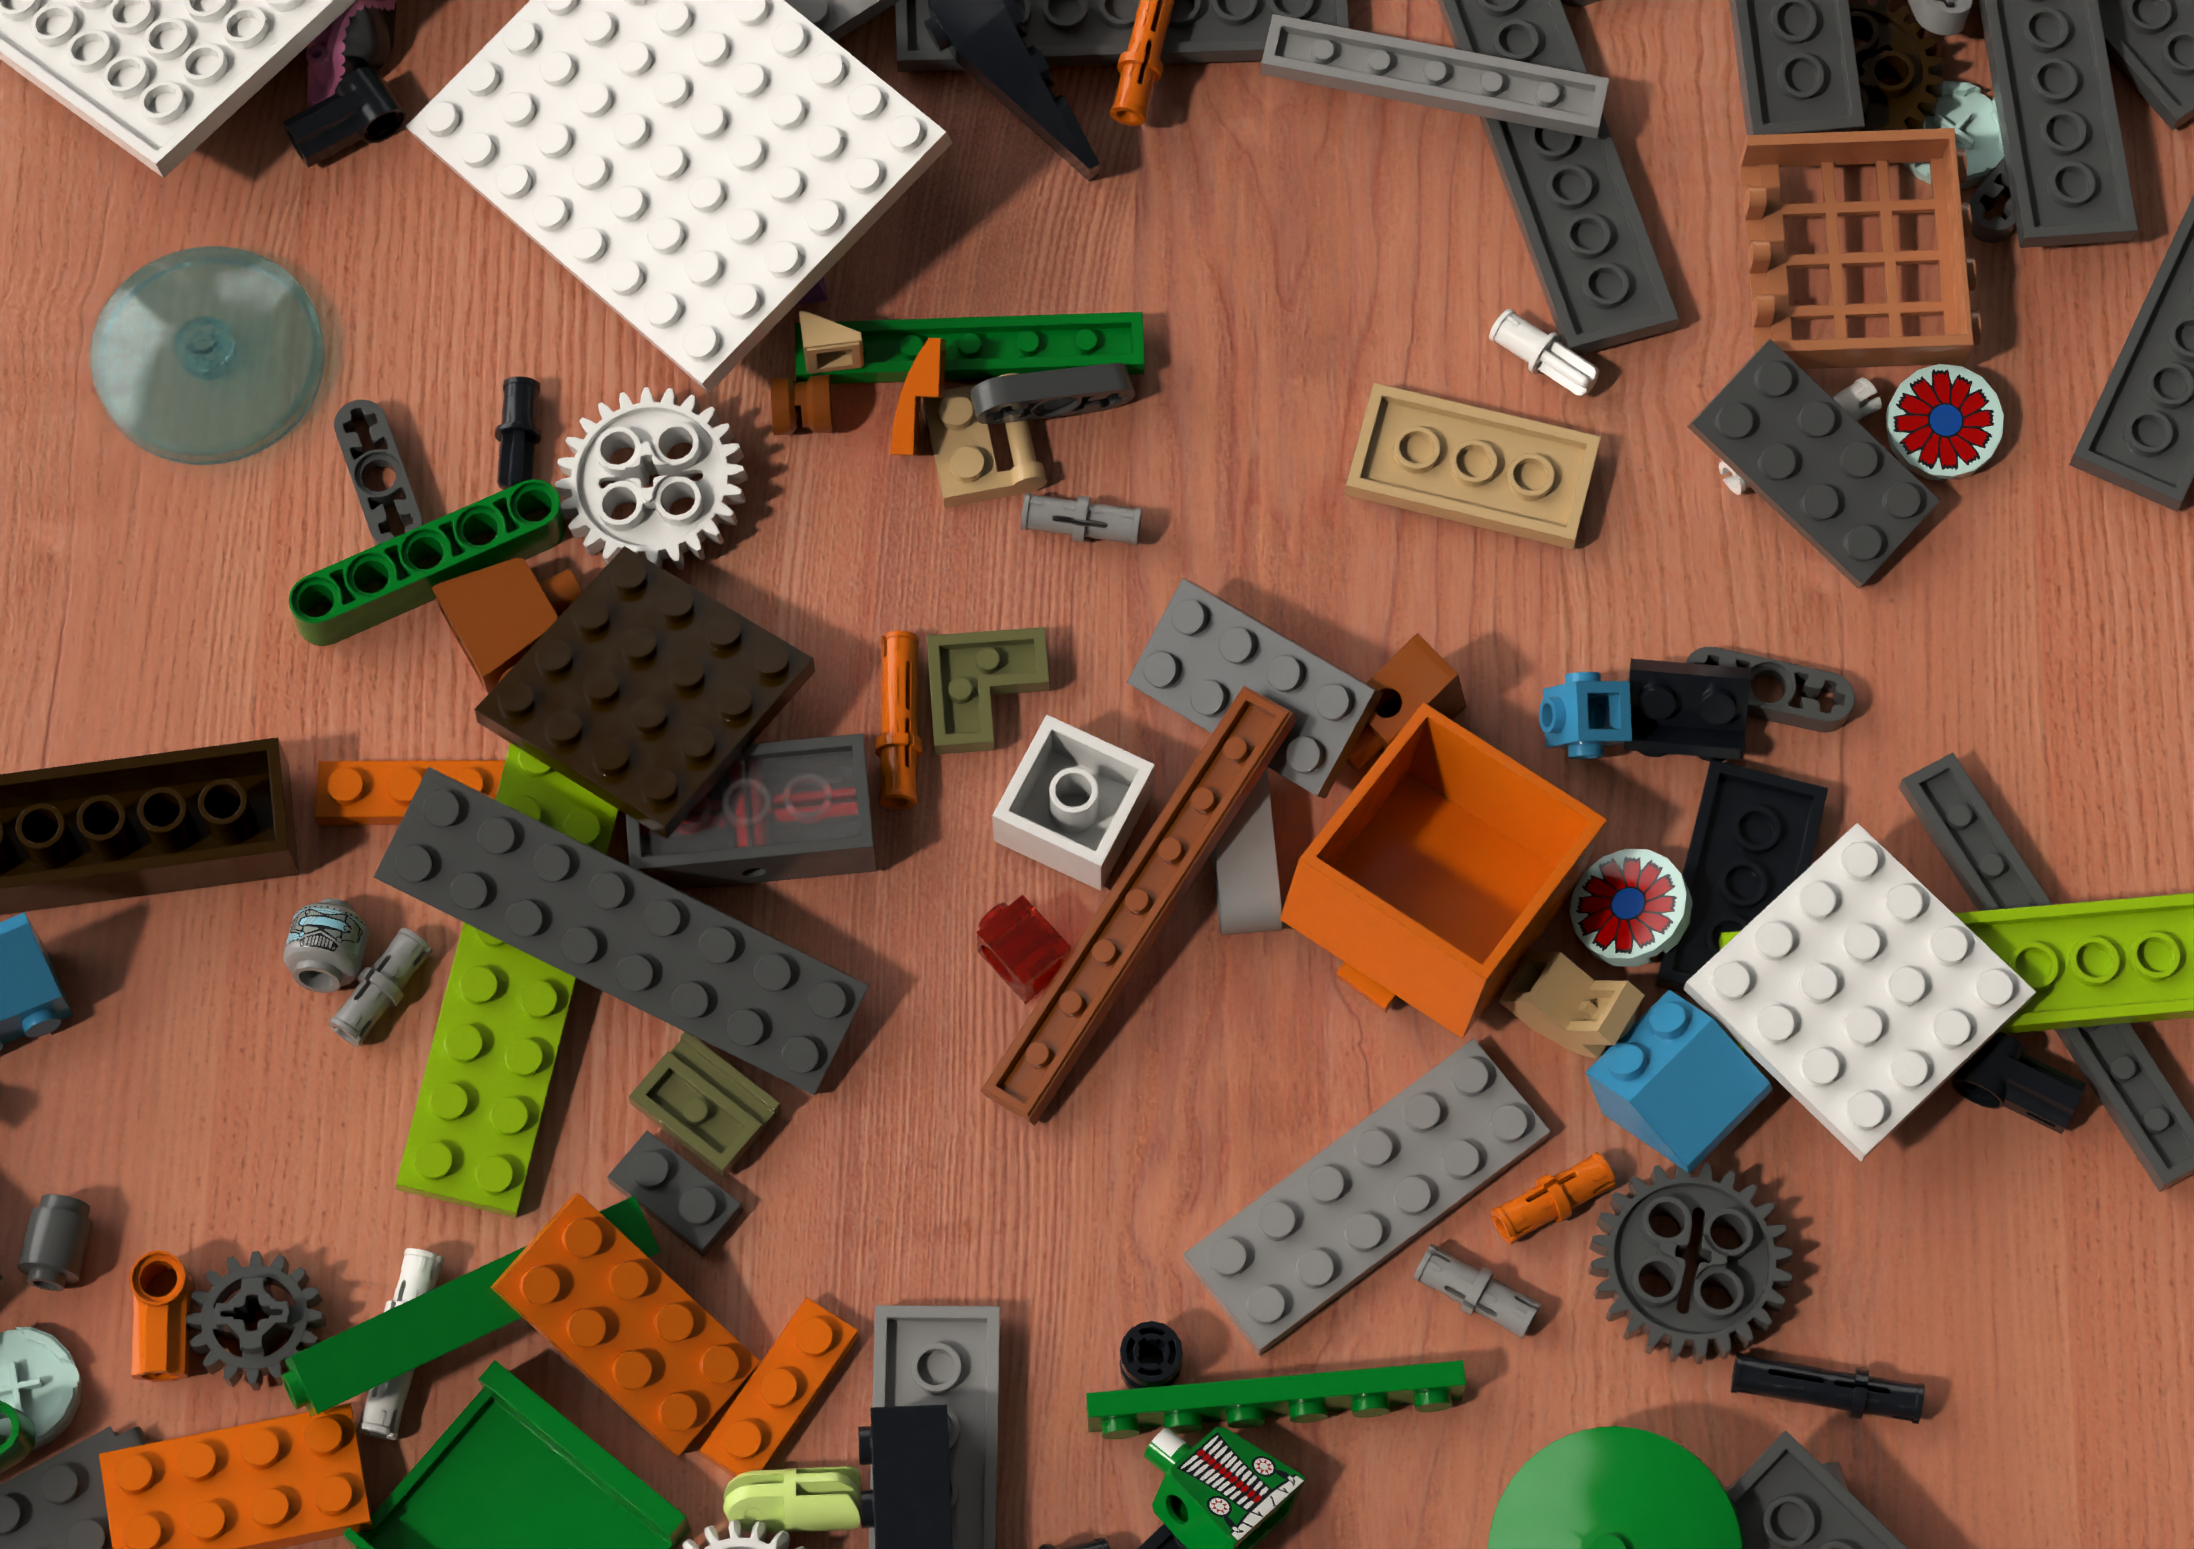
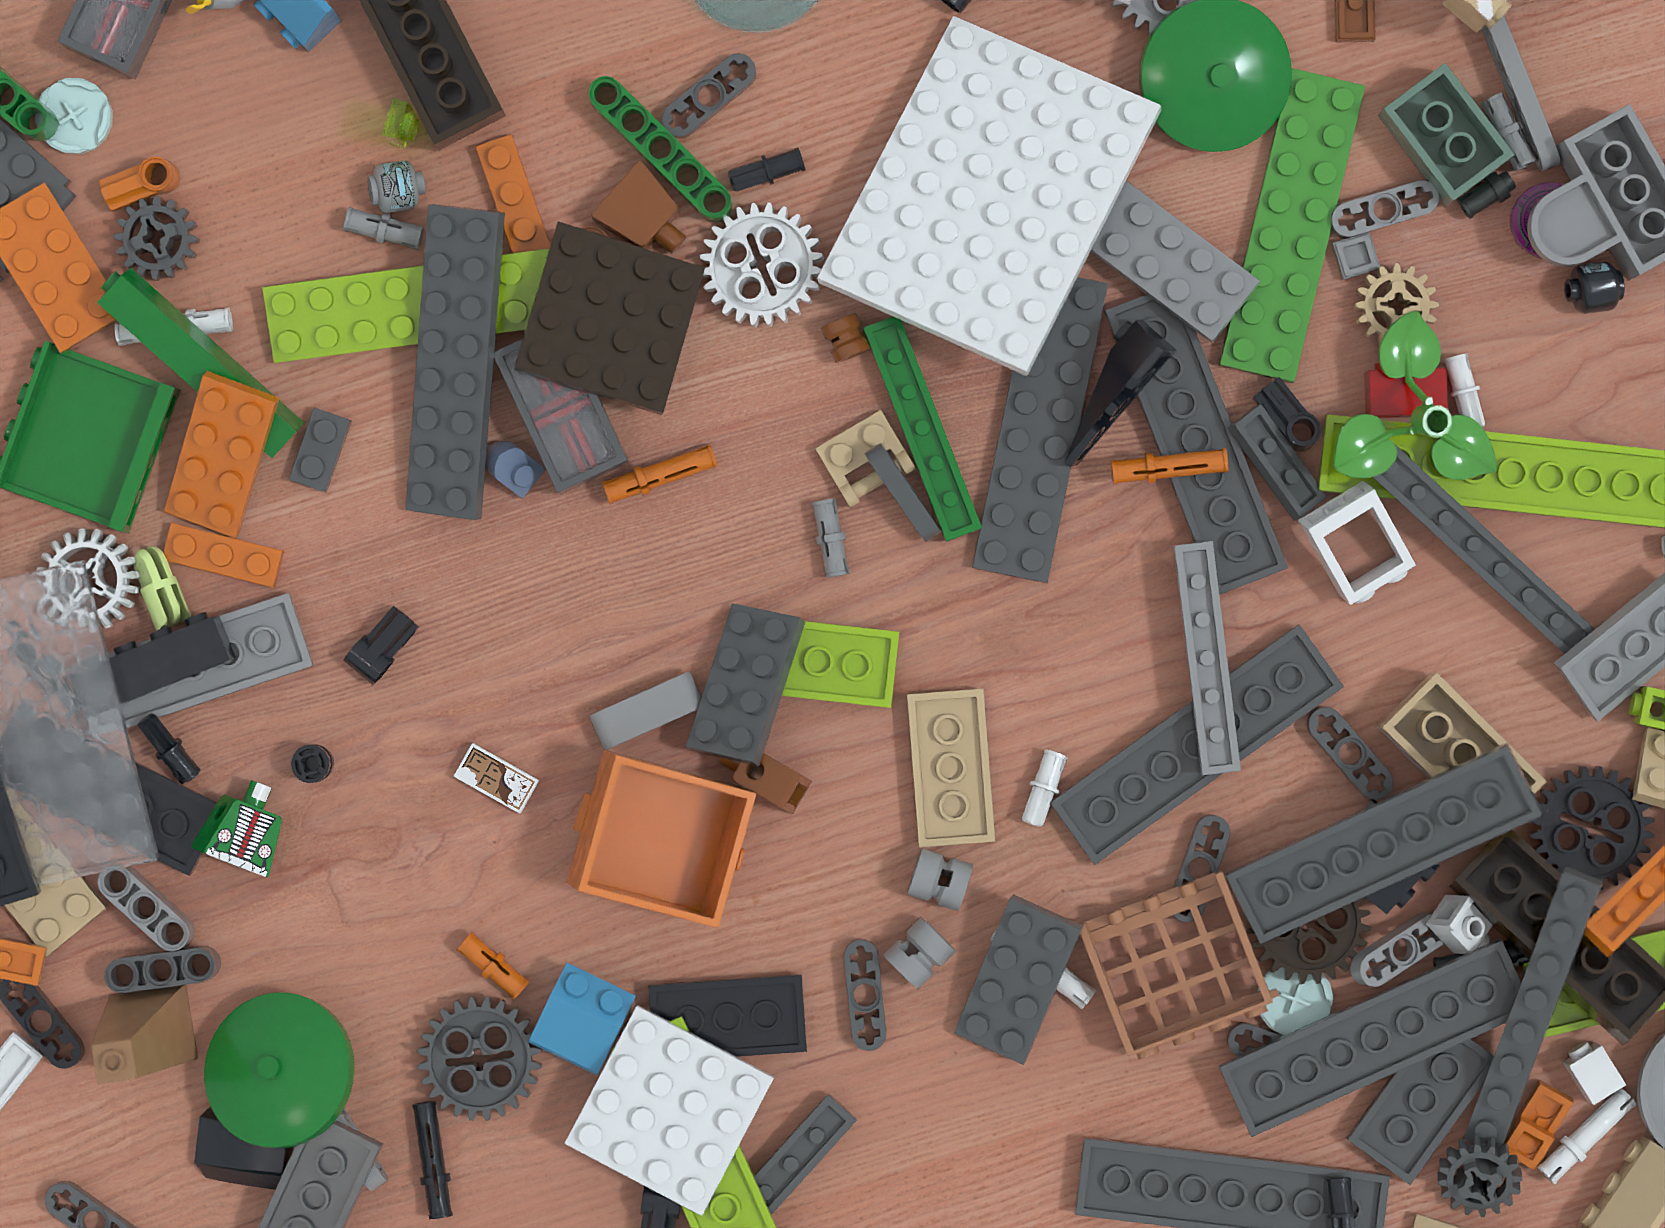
camera: 70 degrees right, 20 degrees up
(55, 1242) = (162, 103): dark grey brick -> none
(236, 896) = (400, 124): none -> clear neon green plate
(705, 1103) = (377, 448): olive plate -> none
(811, 915) = (512, 467): none -> sand blue plate
(829, 345) = (880, 341): tan slope -> none
(923, 380) = (875, 411): orange slope -> none
(971, 669) = (704, 504): olive plate -> none
(1012, 1209) = (375, 652): none -> black piece
(1021, 947) = (538, 600): clear red brick -> none
(1069, 224) = (1034, 440): none -> dark grey plate
(1073, 802) = (635, 600): white brick -> none
(1139, 905) = (583, 663): dark orange tile -> none
(1268, 1101) = (496, 778): none -> tile
(1276, 551) = (844, 665): none -> lime plate
(1301, 1396) = (305, 828): green plate -> none
(1366, 1196) = (458, 855): light grey plate -> none
(1477, 1291) = (421, 938): light grey pin -> none
(1569, 1005) = (612, 941): tan brick -> none
(1586, 715) = (800, 891): dark azure brick -> none
(1630, 907) = (688, 956): tile -> none
(1636, 520) = (927, 874): none -> light grey wheel
(1688, 709) = (825, 951): black bracket -> none
(1723, 171) = (1200, 838): none -> dark grey beam
(1733, 593) = (919, 953): none -> light grey wheel
(1944, 422) = (1082, 1051): tile -> none

